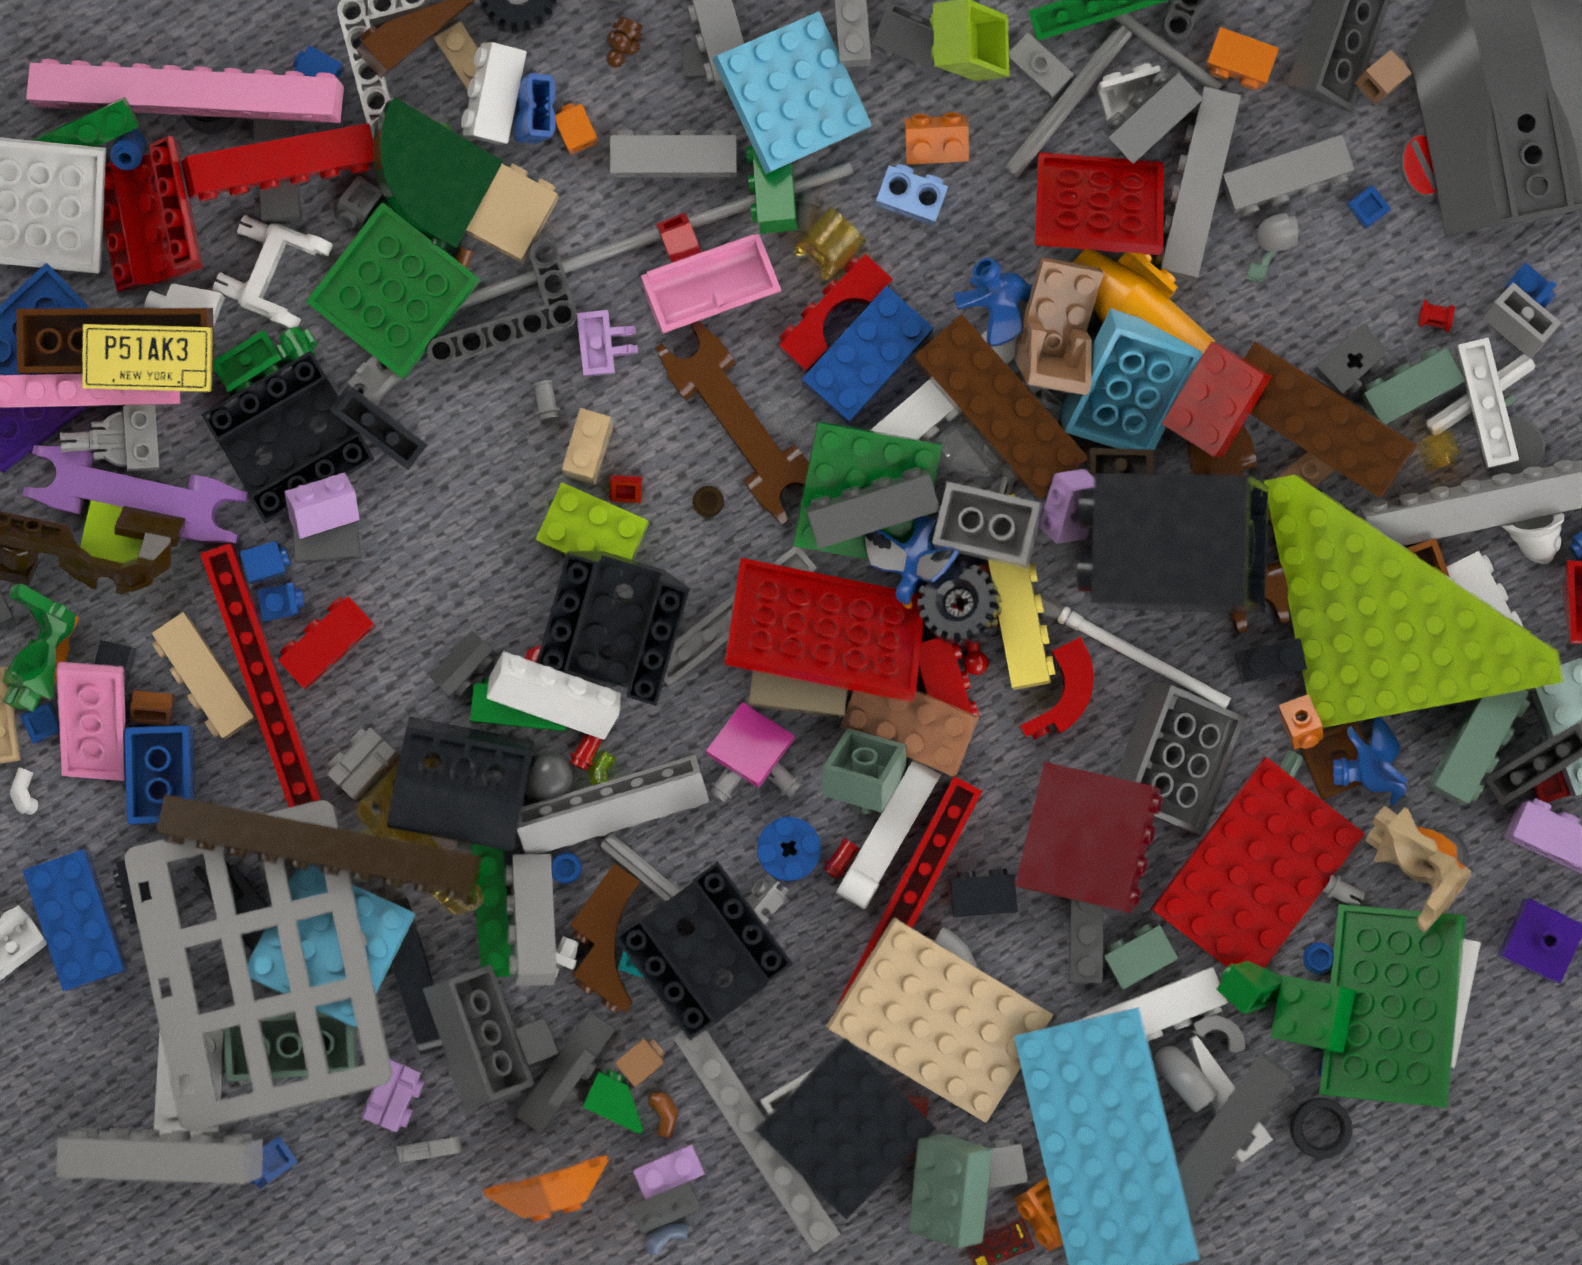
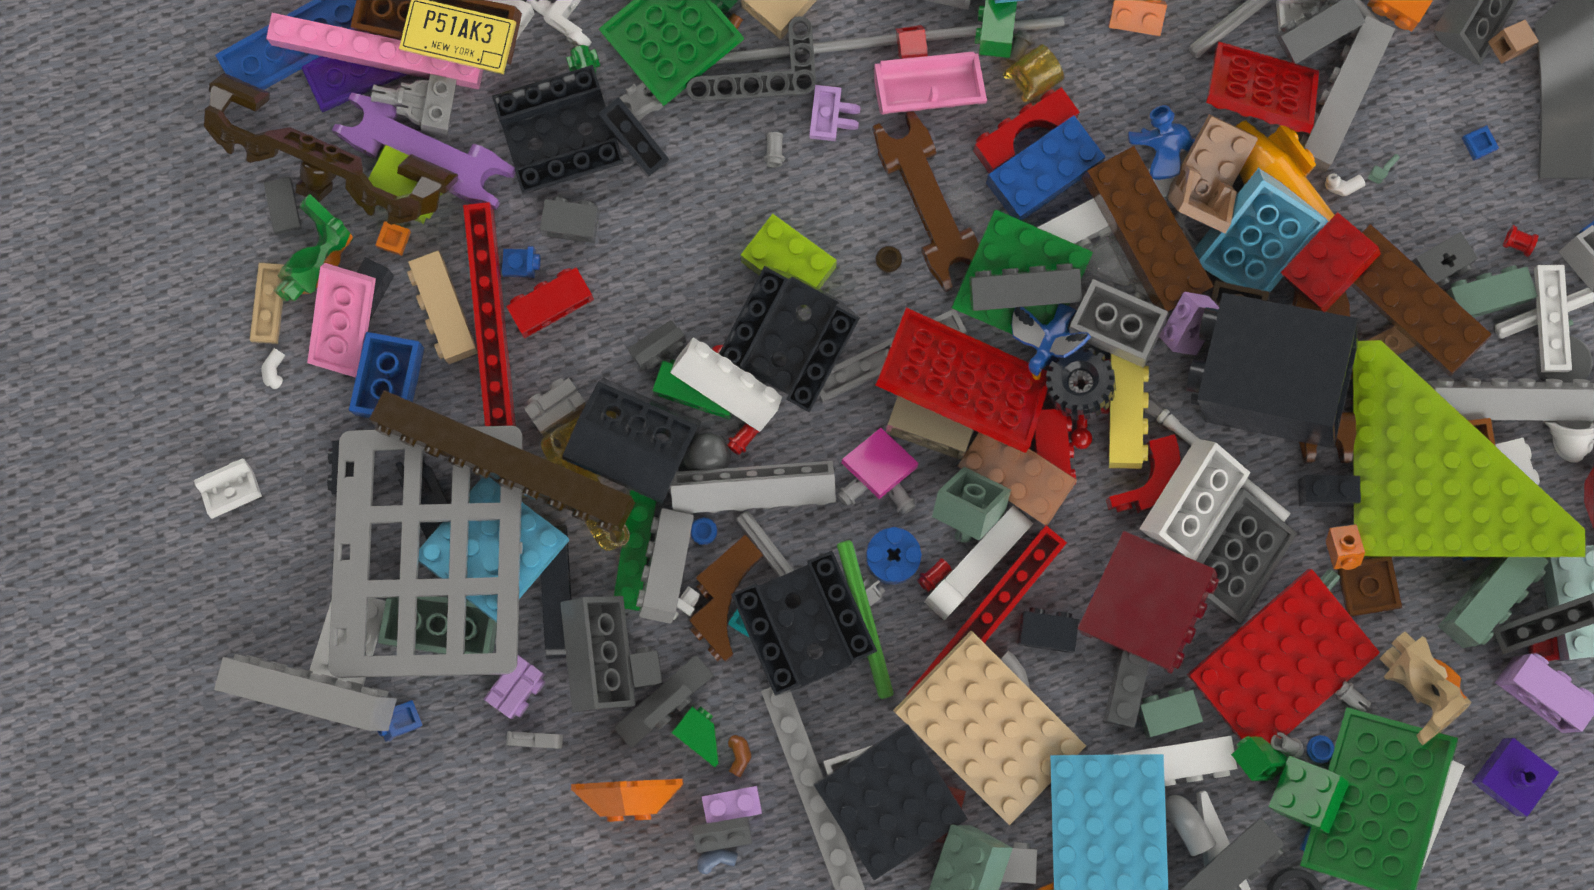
camera: 15 degrees right, 5 degrees down
(41, 723) = (300, 316): blue tile -> none
(75, 920) = (287, 482): blue brick -> none
(125, 607) = (393, 238): none -> orange plate
(152, 708) = (394, 323): dark orange piece -> none
(248, 363) = (539, 65): green bracket -> none
(265, 562) = (515, 227): blue brick -> none
(322, 505) = (572, 188): lavender brick -> none
(587, 446) = (800, 189): tan brick -> none
(598, 772) = (749, 458): clear neon green arm -> none
(625, 488) = (823, 233): red slope -> none
(641, 1061) = (729, 706): medium nougat brick -> none
(760, 905) = (857, 588): none -> bright green axle
(908, 203) = (1104, 57): light blue brick -> none
(1117, 709) = (1195, 499): none -> white slope
(1219, 296) = (1343, 188): none -> white arm
(1234, 1036) = (1234, 793): light grey piece -> none
(1278, 233) = (1402, 146): light grey piece -> none
(1283, 963) = (1289, 746): none -> light grey pin
(1287, 175) = (1419, 101): light grey brick -> none
(1373, 763) = (1402, 596): blue animal -> none
(1417, 166) = (1528, 117): red piece -> none
(1438, 451) = (1502, 349): clear yellow brick -> none

